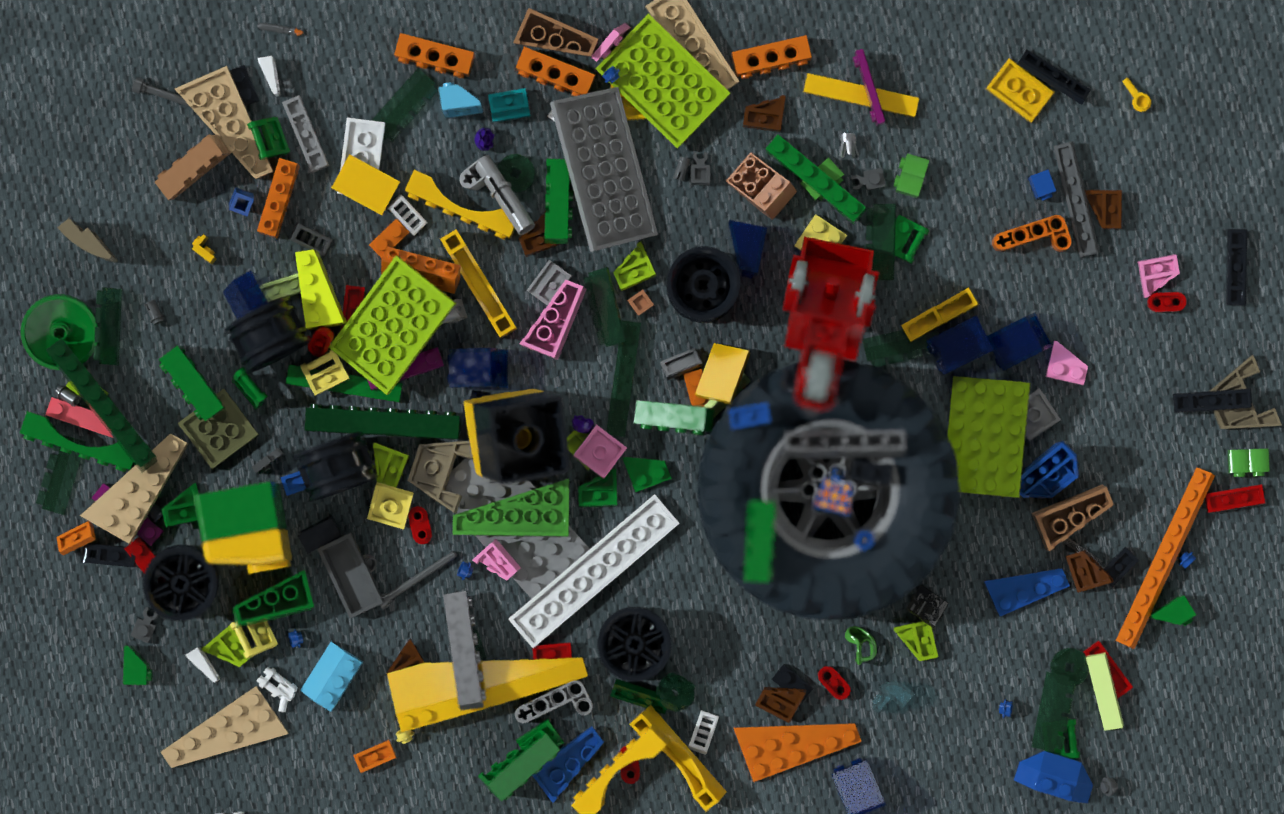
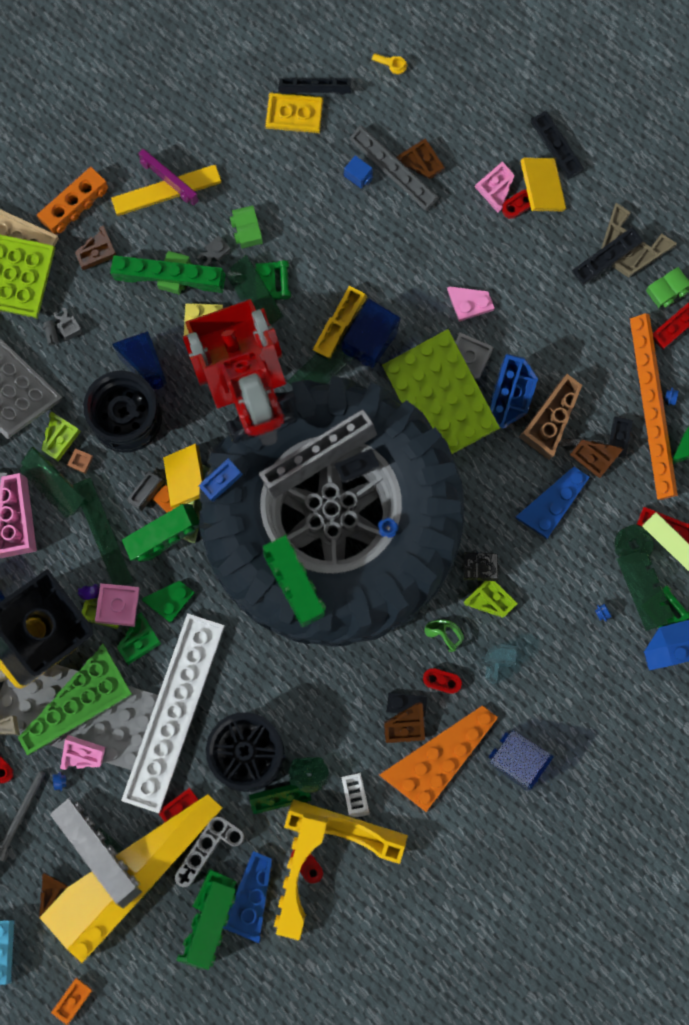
camera: 25 degrees left, 10 degrees down
(404, 737) = (88, 965): light yellow plate -> none
(761, 186) = (127, 307): nougat slope -> none
(834, 494) = (337, 504): torso -> none
(848, 140) = (178, 229): flat silver piece -> none
(1019, 341) = (418, 304): clear blue slope -> none
(1029, 236) = (374, 217): orange beam -> none
(1199, 298) = (543, 184): none -> yellow tile

